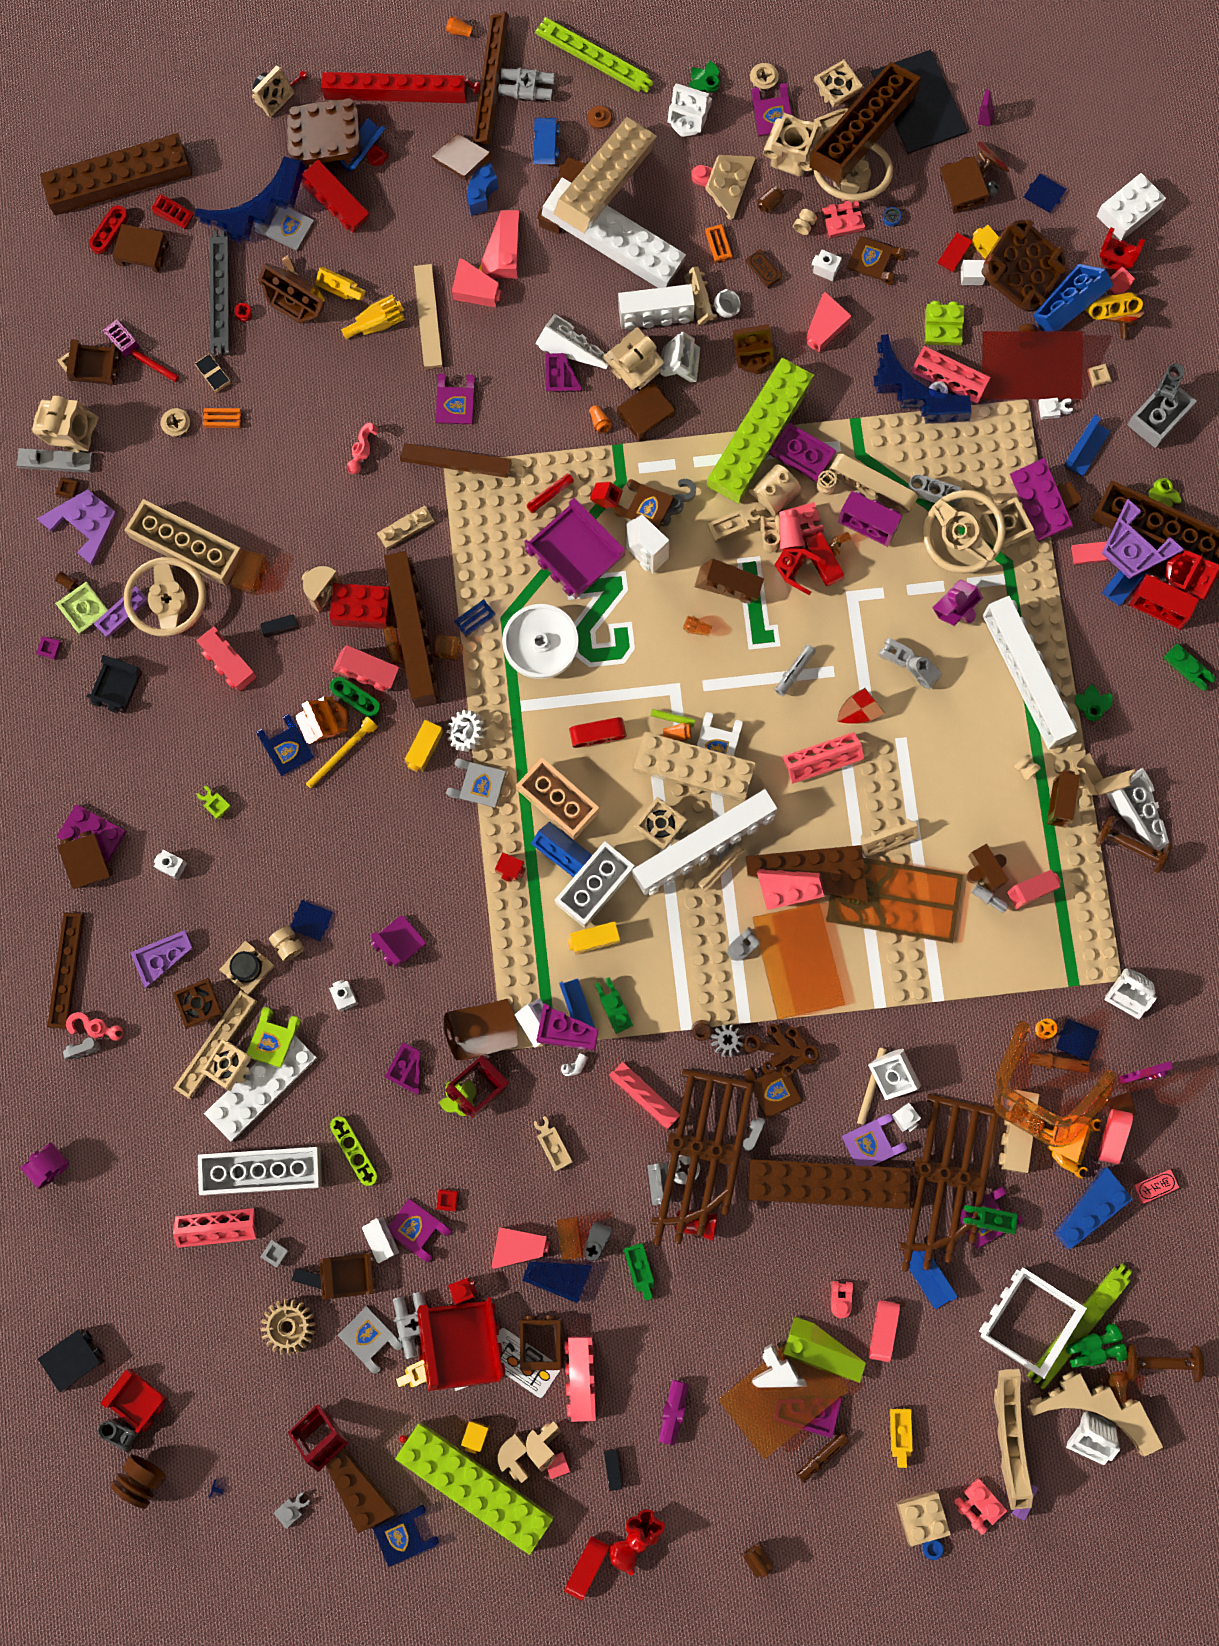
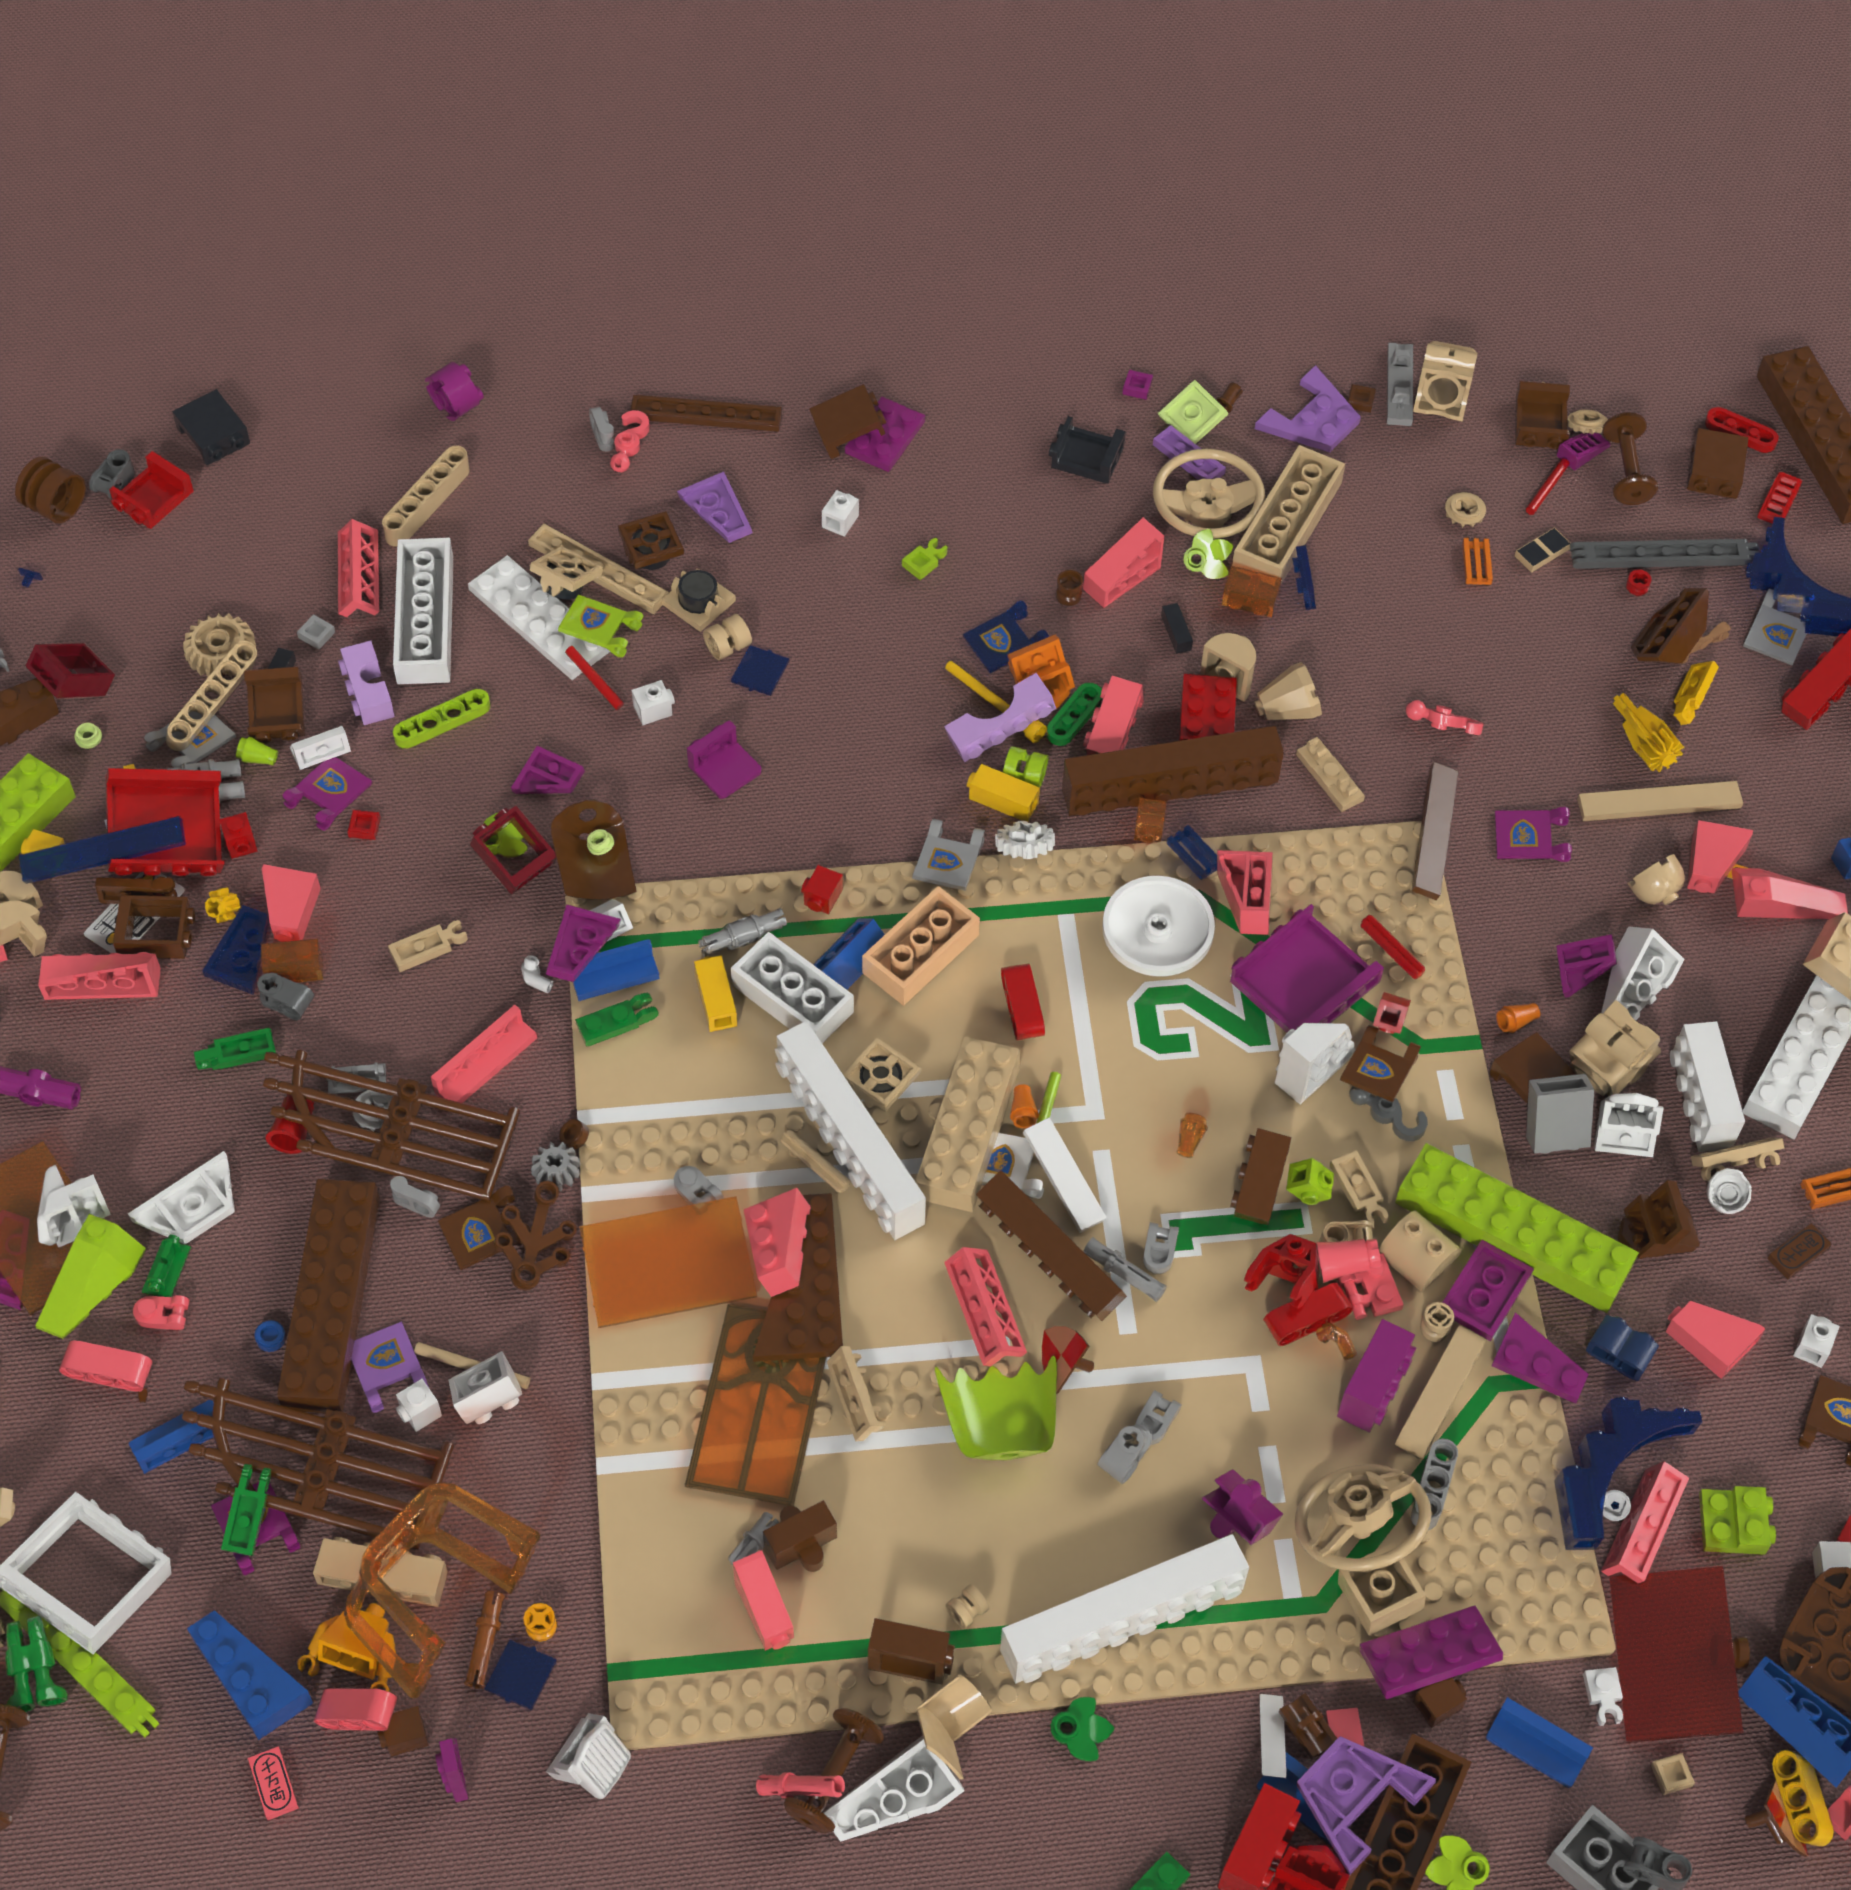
camera: 85 degrees right, 20 degrees down
(94, 329) = (1586, 421): none -> tan gear
(136, 1179) = (426, 495): none -> tan beam
(137, 305) = (1636, 487): none -> reddish brown hose
(217, 599) = (1212, 555): none -> lime plate
(240, 697) = (1069, 587): none -> reddish brown wheel
(245, 533) = (1305, 582): none -> clear blue plate
(321, 1039) = (593, 676): none -> red bar
(340, 1206) = (371, 700): none -> lavender arch
(345, 549) = (1289, 696): none -> tan cone
(347, 1333) = (208, 707): none -> tan beam
(353, 724) = (975, 735): none -> lavender arch
(362, 1418) = (86, 730): none -> yellowish green plate
(385, 1287) = (253, 751): none -> lime cone
(403, 730) = (1034, 769): none -> lime wheel
(461, 1026) = (600, 842): none -> yellowish green plate
(489, 1385) = (101, 849): none -> clear blue tile
(498, 321) = (1659, 882): none -> tan cylinder
(509, 1361) = (111, 888): none -> reddish brown hinge
(512, 580) = (1248, 887): none -> coral wedge
(522, 1295) = (222, 905): none -> yellow gear
(549, 920) = (742, 932): none -> light grey pin
(680, 396) = (1560, 1113): none -> light grey brick
(730, 706) = (1064, 1175): none -> white tile
(733, 551) = (1310, 1181): none -> lime brick
(761, 1288) = (191, 1203): none -> white wing
(782, 715) = (1051, 1245): none -> reddish brown brick
(785, 650) = (1157, 1255): none -> light grey plate
(809, 1300) = (166, 1267): none -> green hinge
(835, 376) = (1622, 1347): none -> dark blue brick
(847, 427) = (1538, 1361): none -> magenta wing
(855, 1223) = (270, 1336): none -> blue tile
(898, 745) = (1002, 1414): none -> lime piece
(1088, 572) = (1308, 1726): none -> reddish brown hips
(1096, 592) = (1272, 1736): none -> white sticker
(1144, 871) = (791, 1785): none -> coral pin

